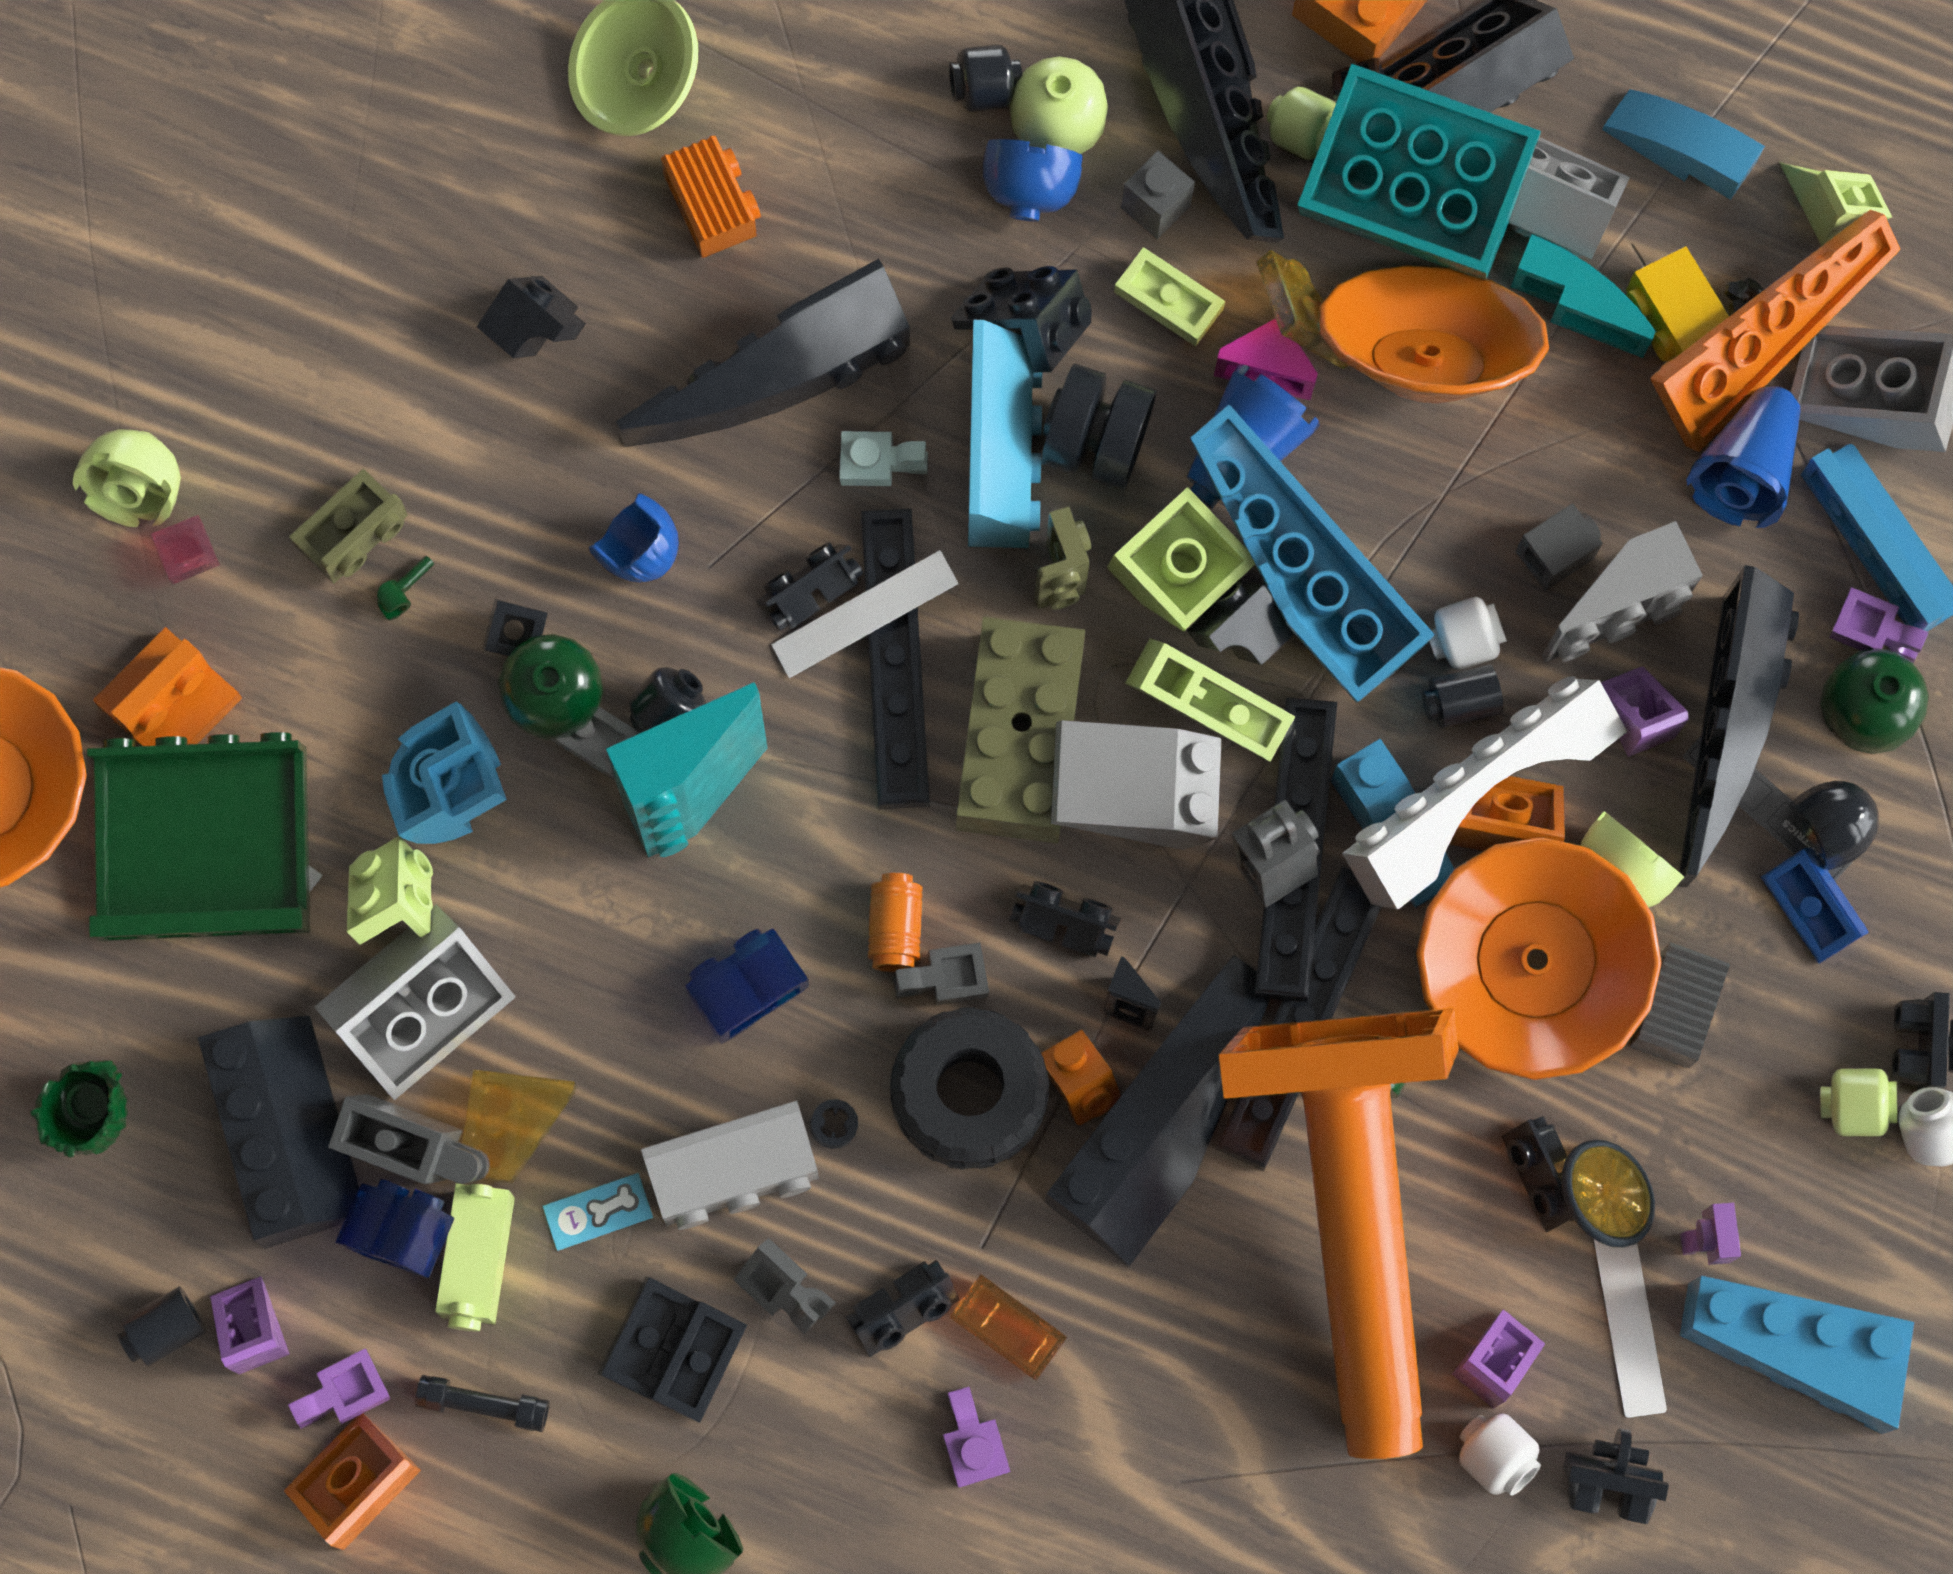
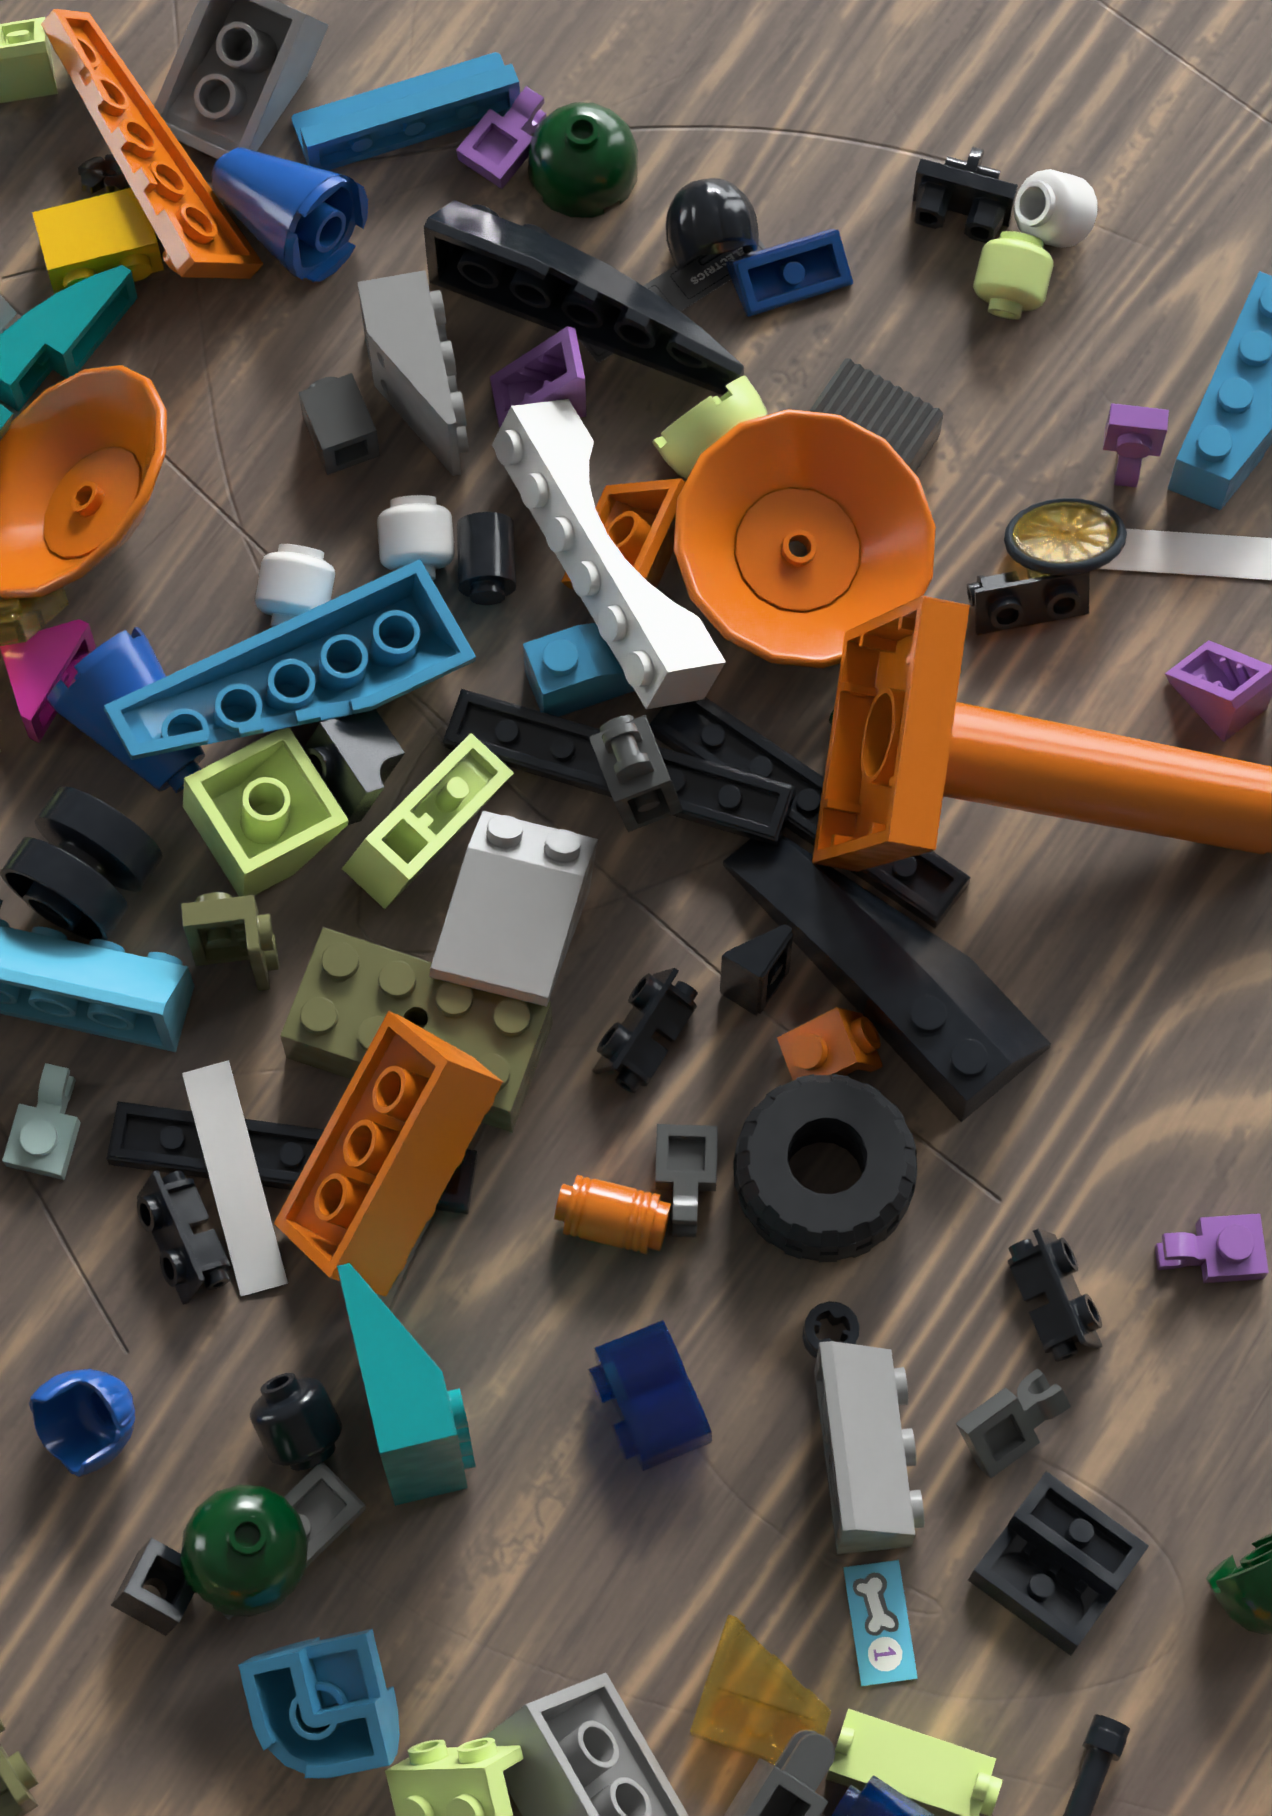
camera: 75 degrees left, 5 degrees down
(391, 593) = (77, 1734): dark green hand -> none
(897, 724) = (387, 1153): none -> orange slope
(1008, 1327) = (1098, 1185): clear orange tile -> none
(1397, 543) = (293, 582): none -> white head

